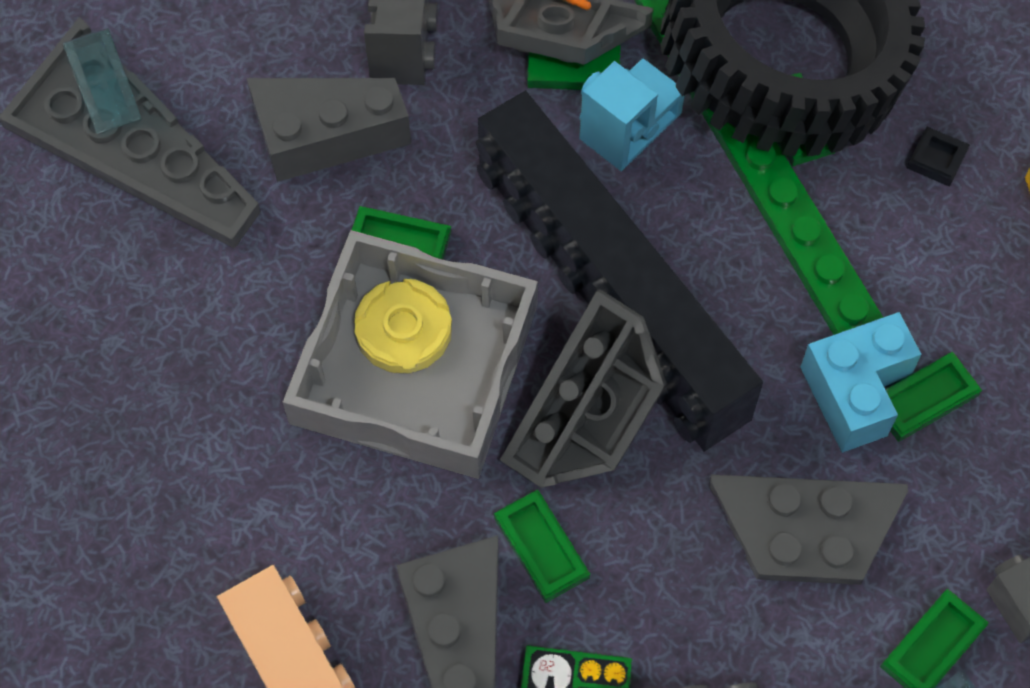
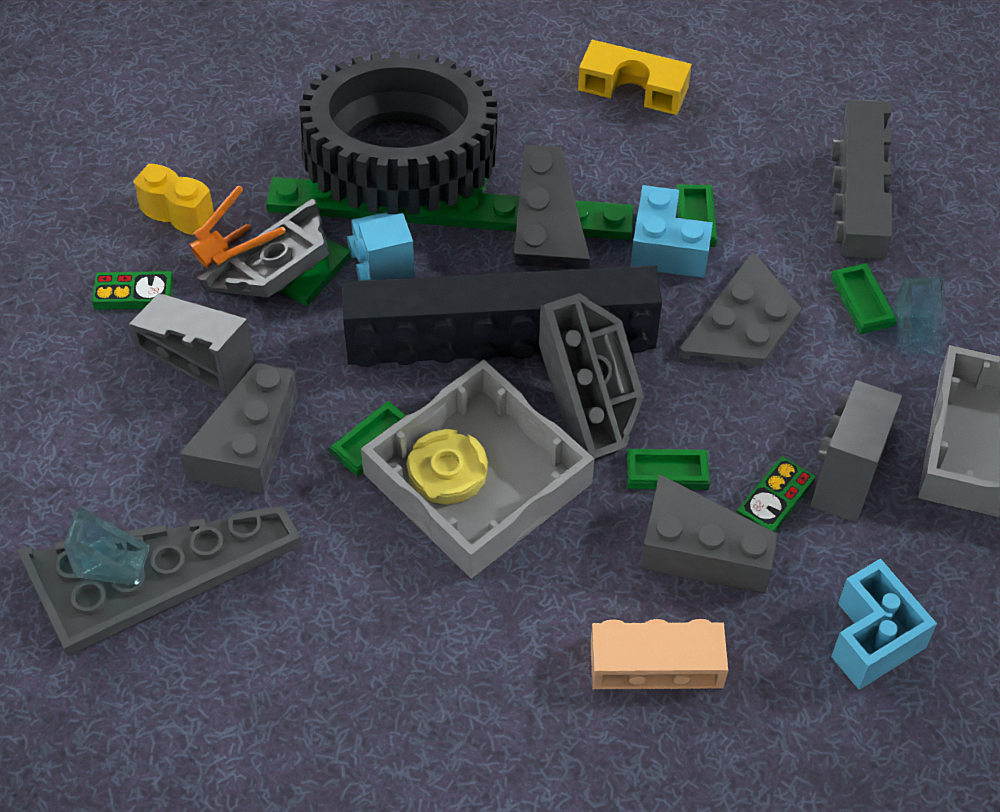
camera: 60 degrees left, 10 degrees down
(788, 235) = (548, 216): none -> dark grey wedge
(938, 156) = (533, 120): black tile -> none

